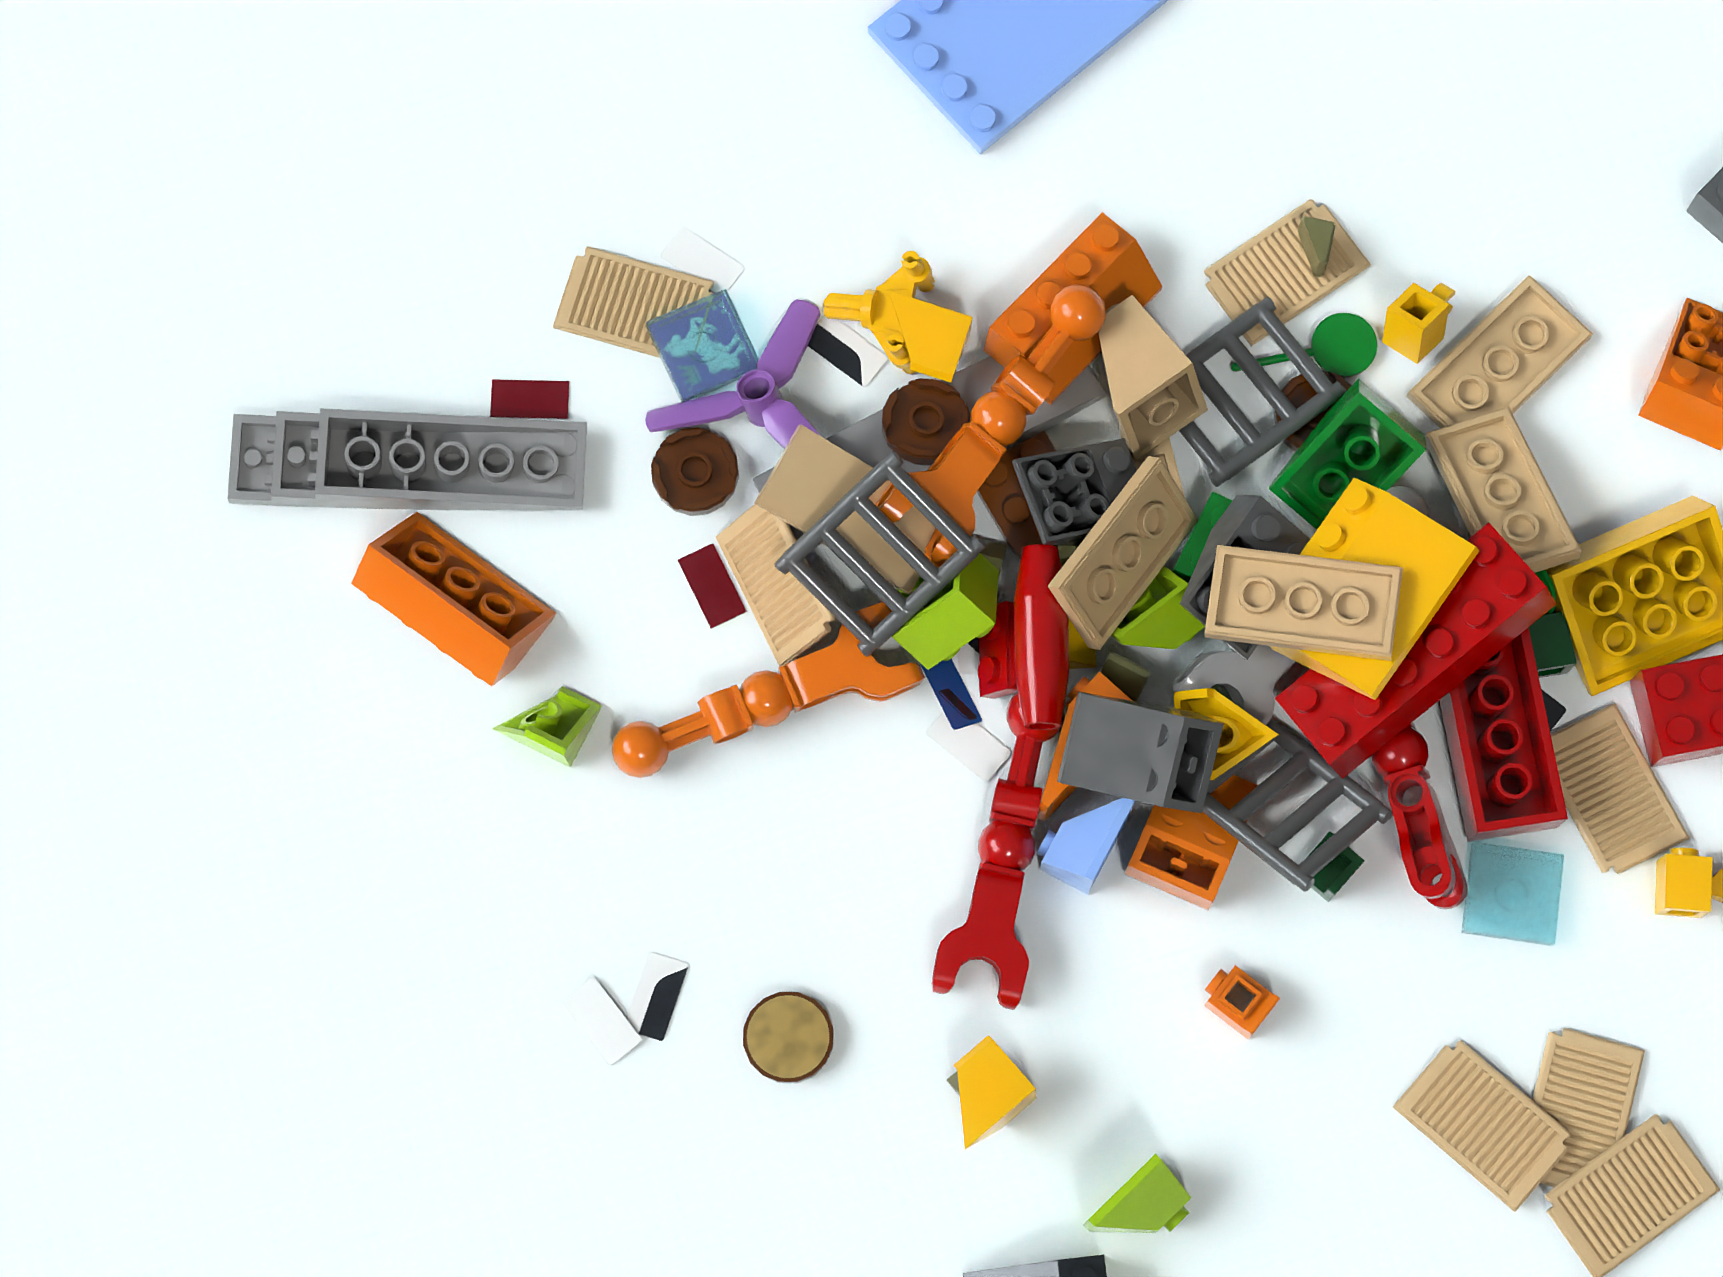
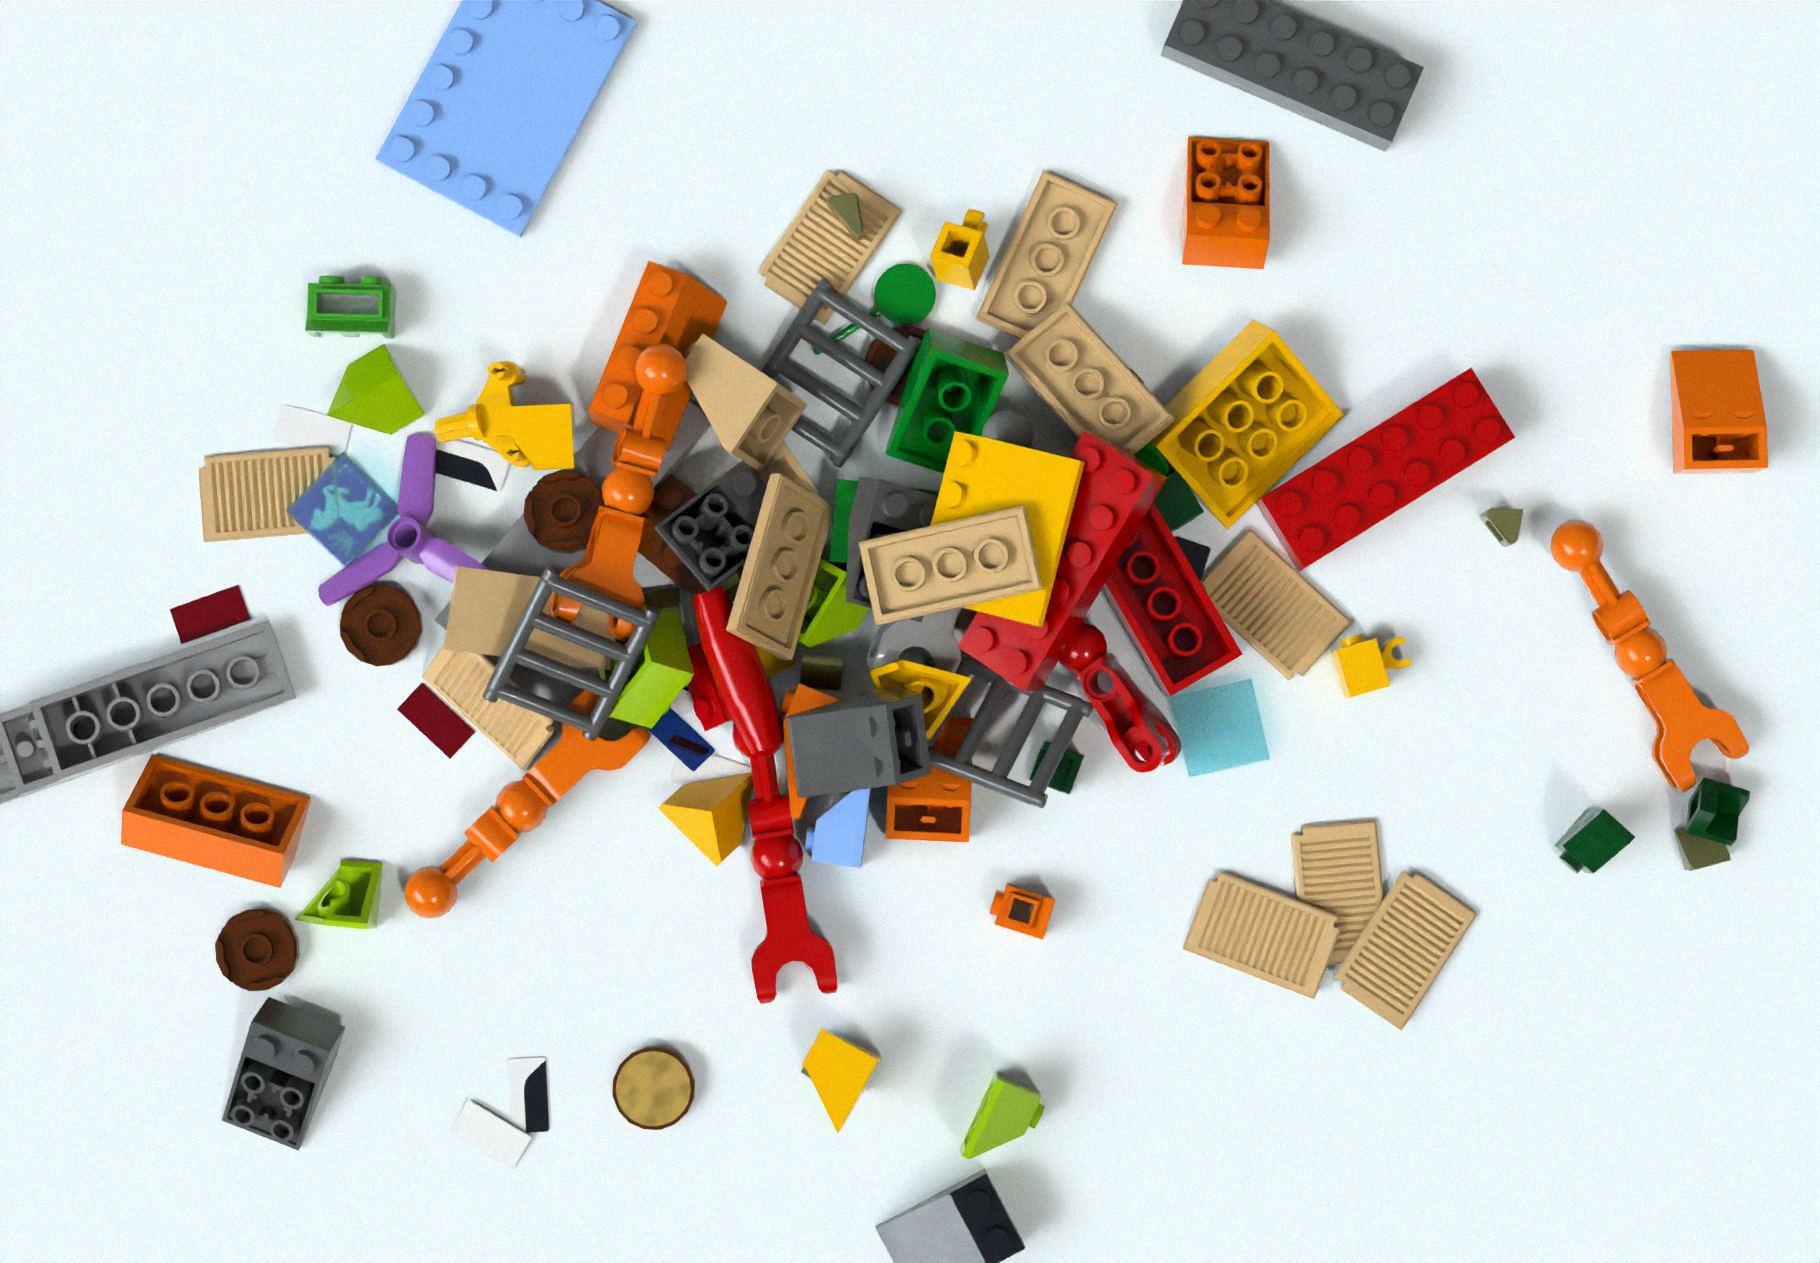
camera: 25 degrees left, 10 degrees up
(417, 874) = (282, 1072): none -> dark grey slope
(442, 743) = (257, 949): none -> reddish brown tile
(780, 248) = (375, 394): none -> lime slope
(788, 154) = (351, 307): none -> bright green window
(956, 781) = (711, 813): none -> yellow slope

